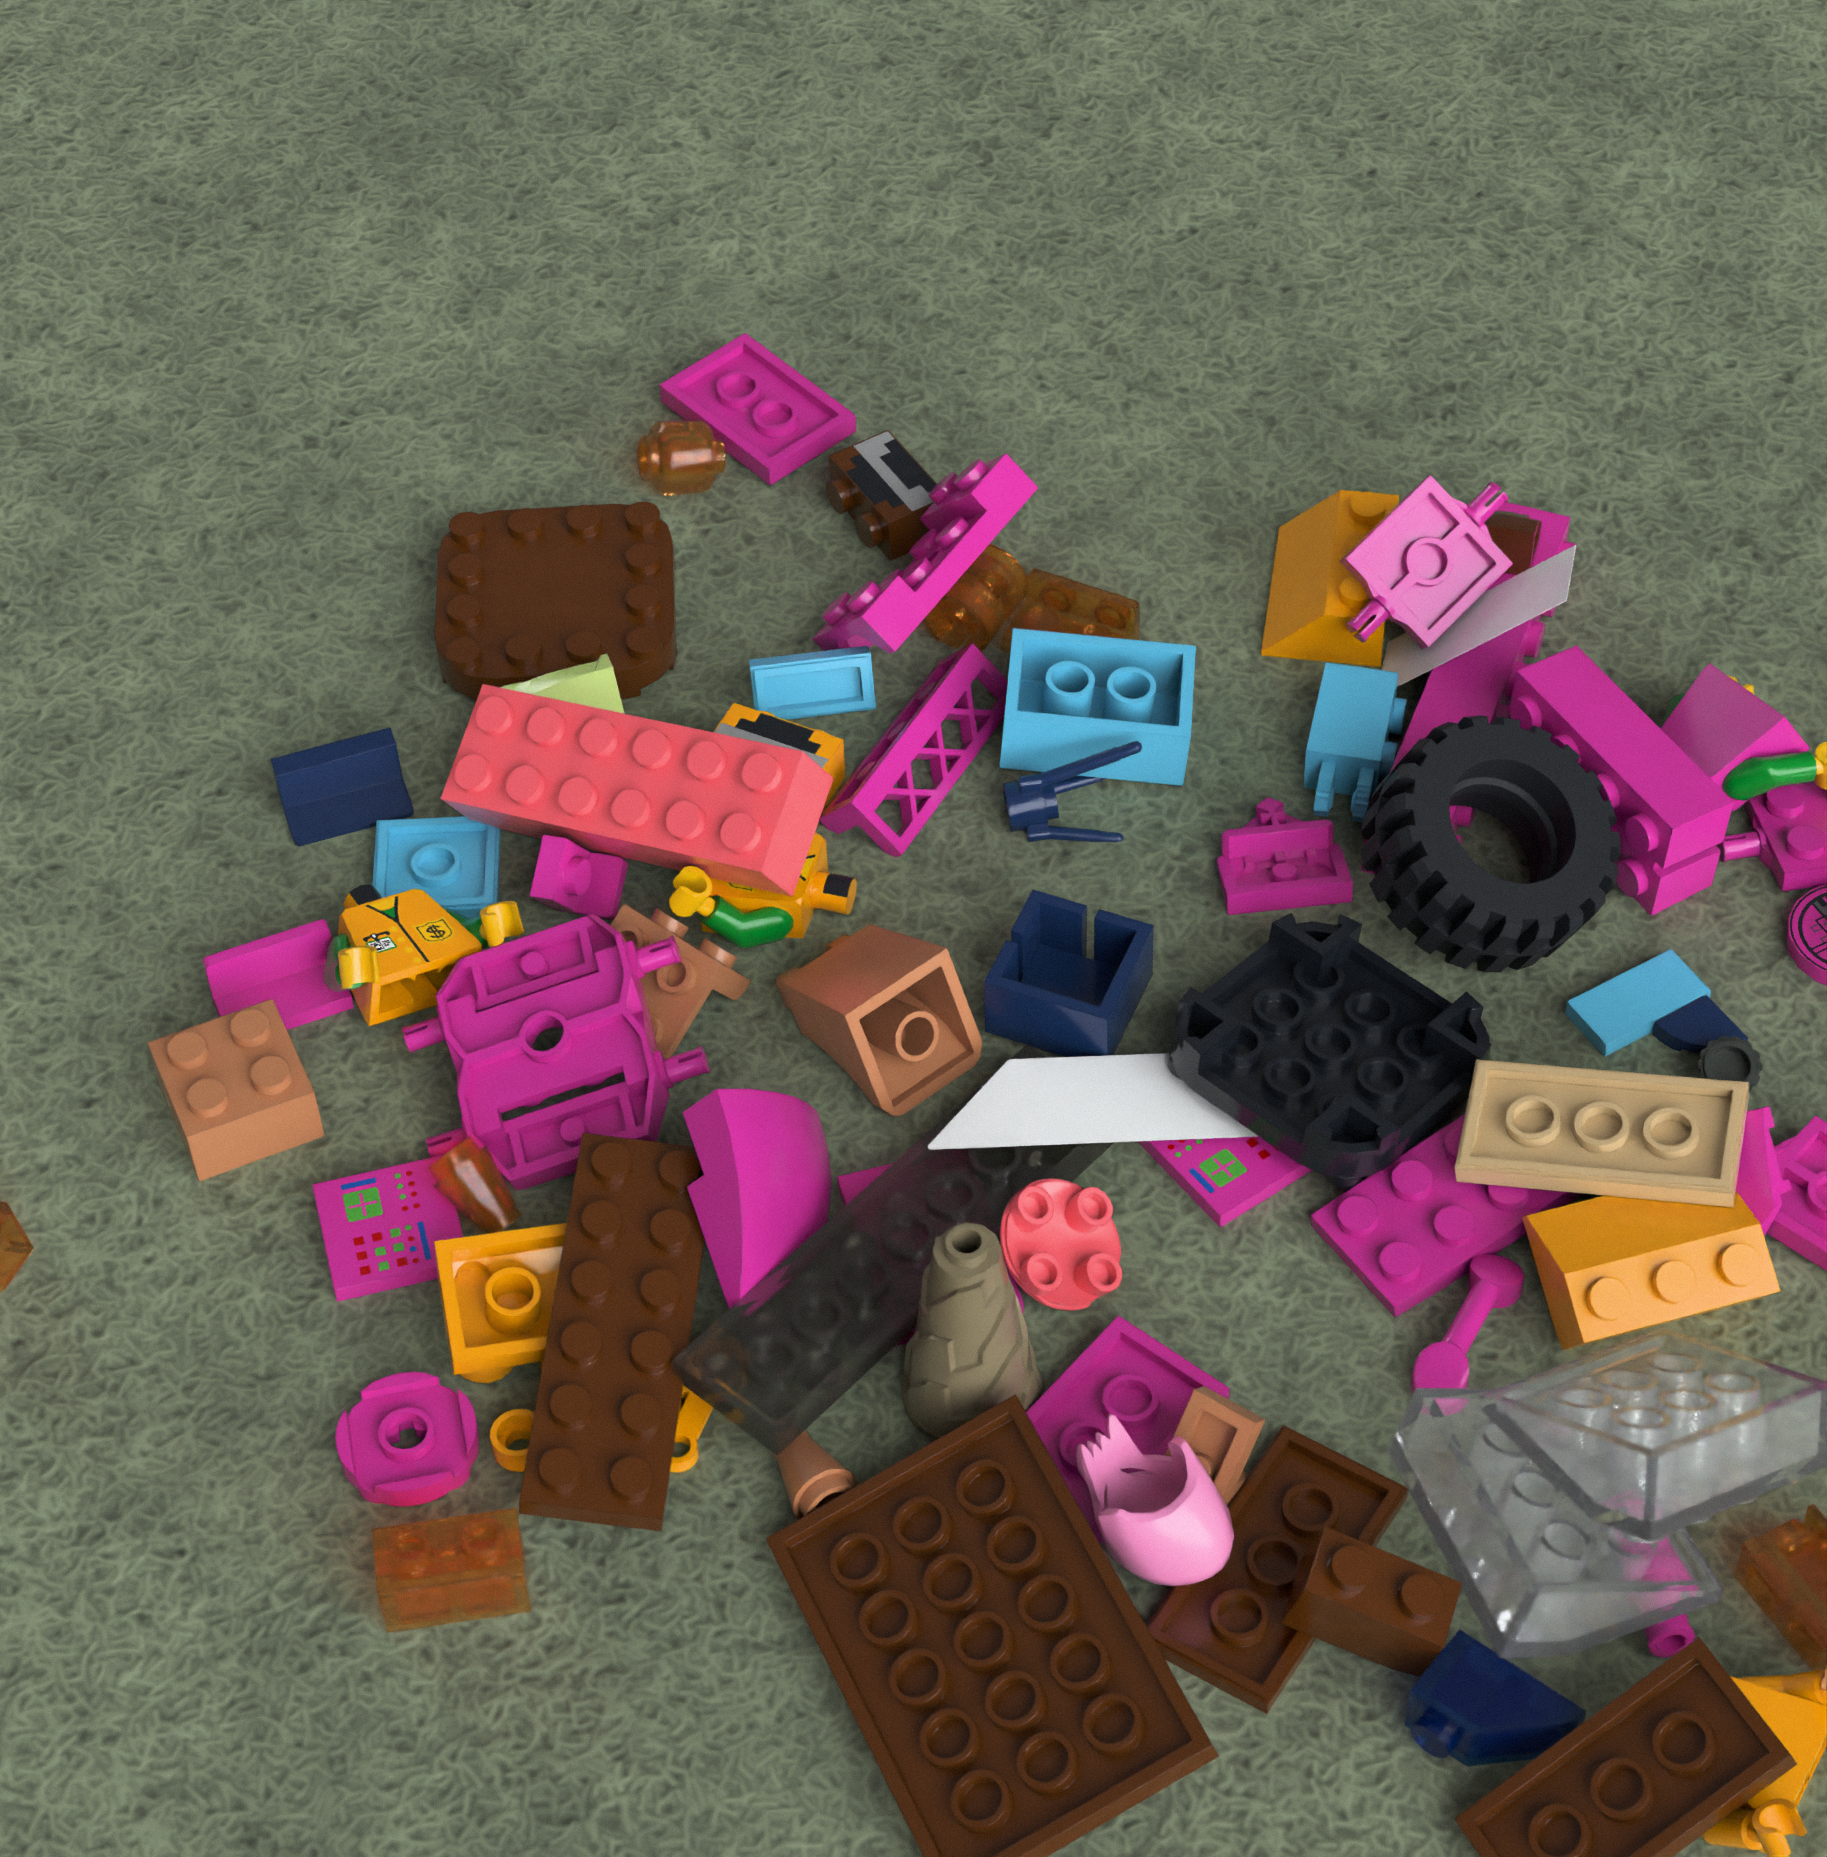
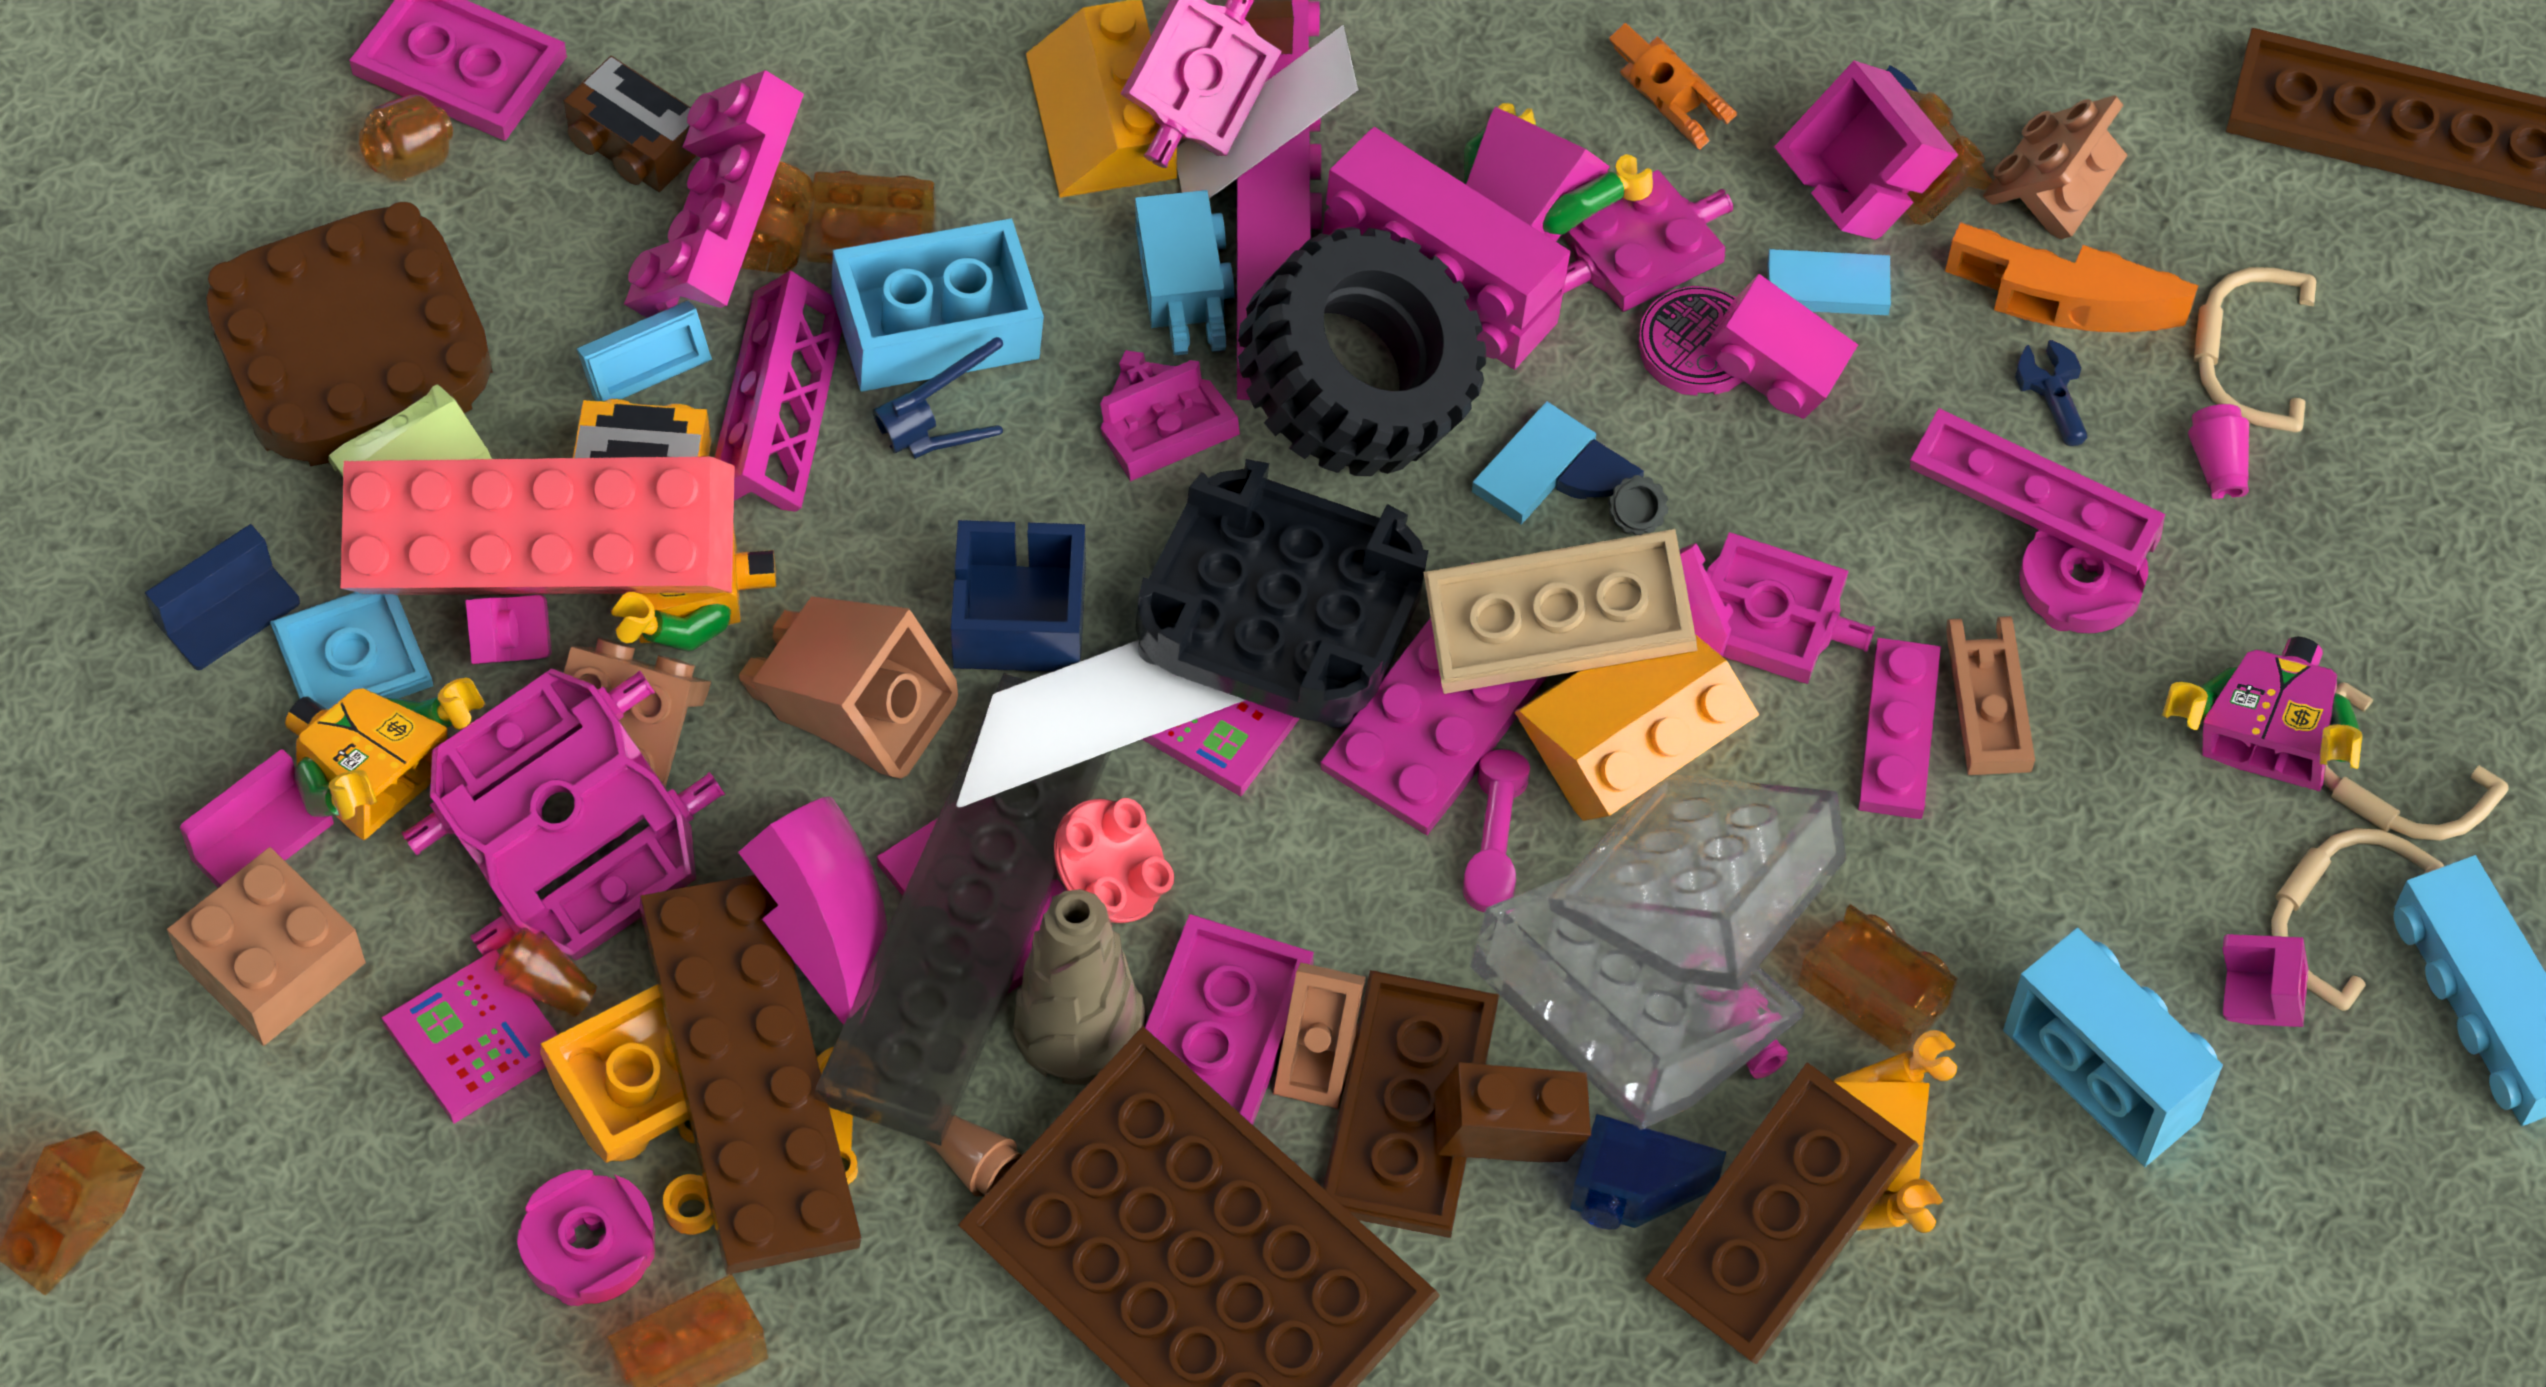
camera: 25 degrees left, 10 degrees up
(1158, 1521) = (1306, 1093): bright pink helmet -> none

